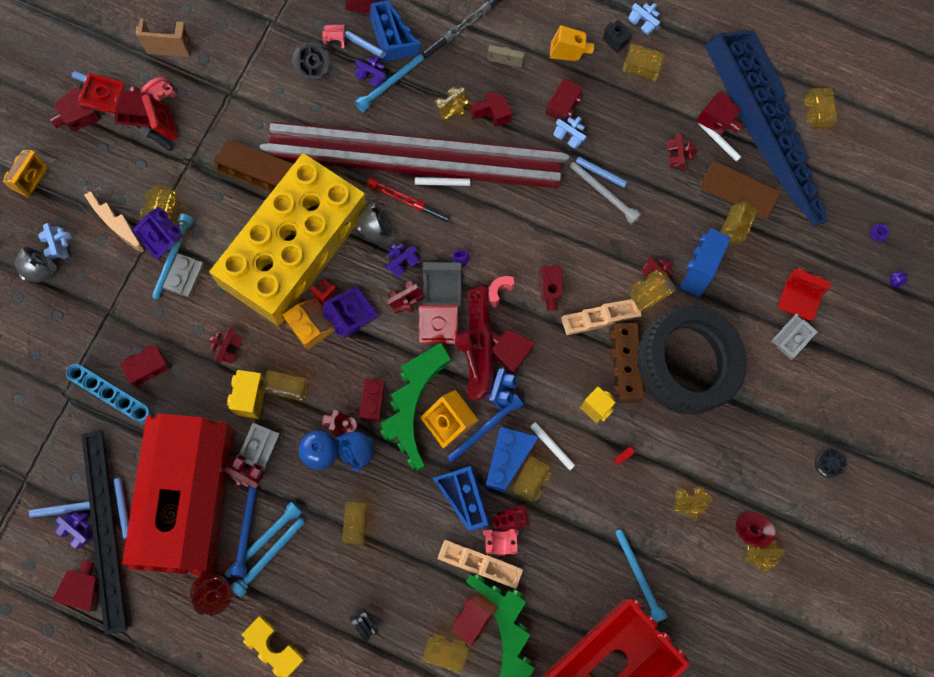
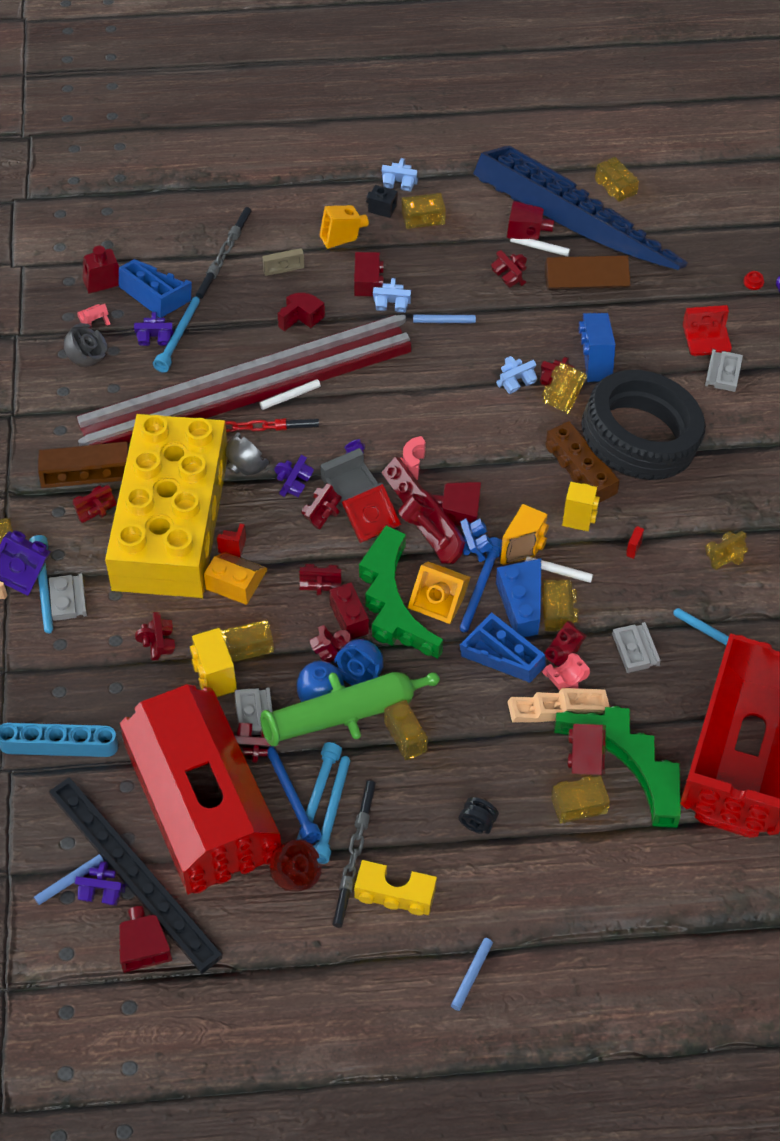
camera: 25 degrees left, 20 degrees down
(121, 506) = (135, 839): medium blue bar -> none
(144, 365) = (80, 695): dark red brick -> none
(242, 207) = (94, 503): none -> dark red hips
(244, 622) = (347, 882): none -> piece
(319, 483) = (341, 706): none -> bright green piece
(349, 312) = (270, 546): dark purple plate -> none
(367, 361) = (319, 578): none -> dark red hips
(368, 46) = (131, 309): medium blue bar -> none
(453, 104) = (257, 323): clear yellow hips -> none
(539, 408) = (524, 535): none -> light orange slope
(550, 278) = (462, 428): dark red torso -> none
(567, 547) = (636, 647): none -> light grey plate
(600, 317) = (529, 437): light nougat slope -> none
(631, 214) = (499, 339): light grey piece -> none
(634, 257) = (515, 371): none -> light blue hips
(739, 222) = (606, 297): clear yellow brick -> none
(873, 264) = (754, 280): none -> red plate
(883, 229) = (741, 253): dark purple plate -> none

